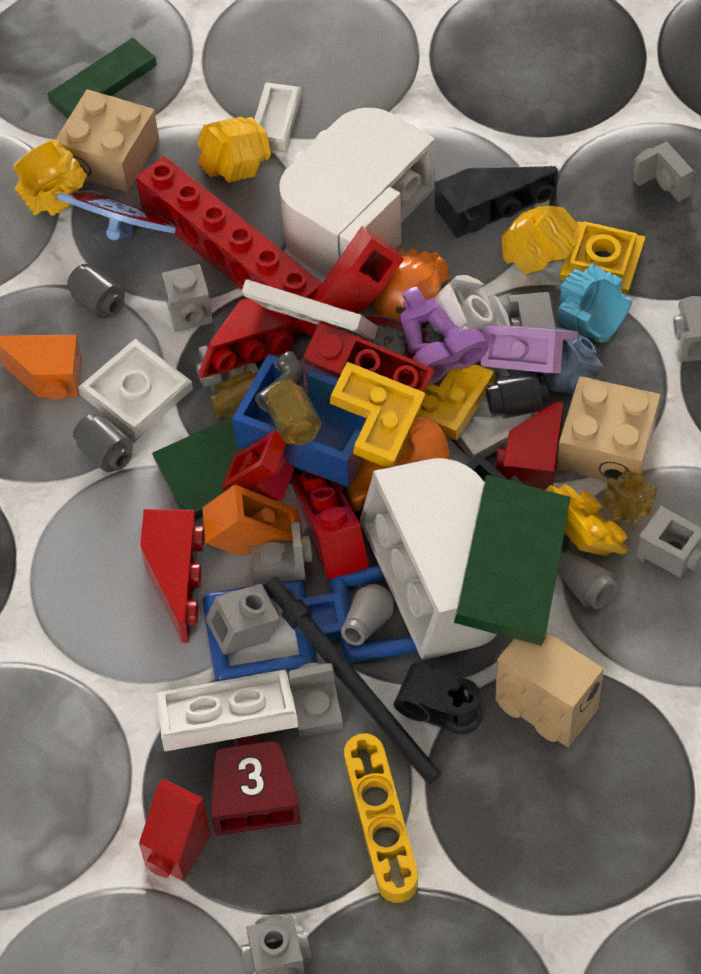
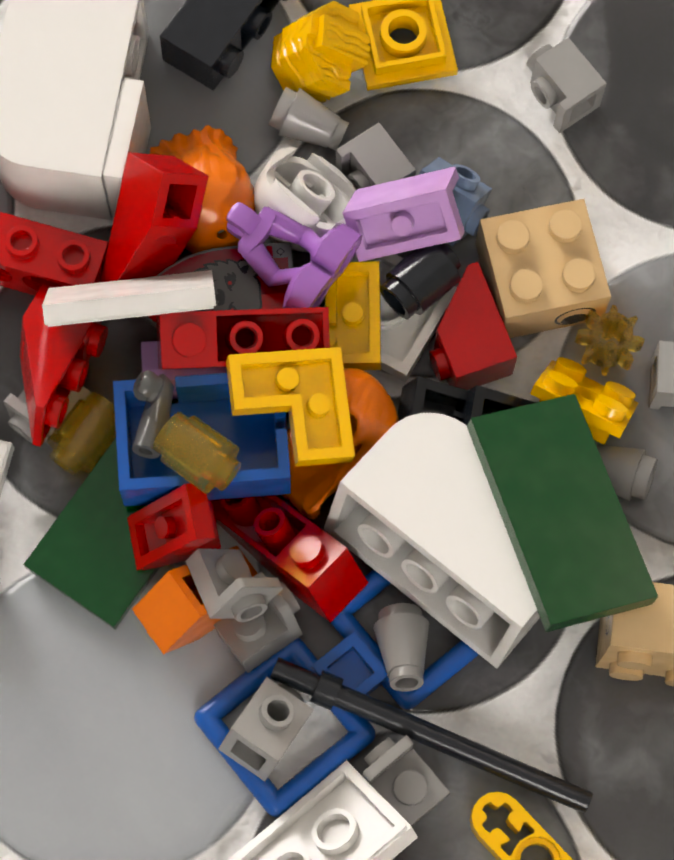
camera: 35 degrees left, 15 degrees up
(169, 556) = (129, 695): red slope -> none
(271, 516) = (228, 585): none -> light grey bracket
(439, 697) = (530, 705): black piece -> none
(503, 274) = (307, 120): none -> light grey cone
(593, 303) = (433, 111): medium azure hair -> none

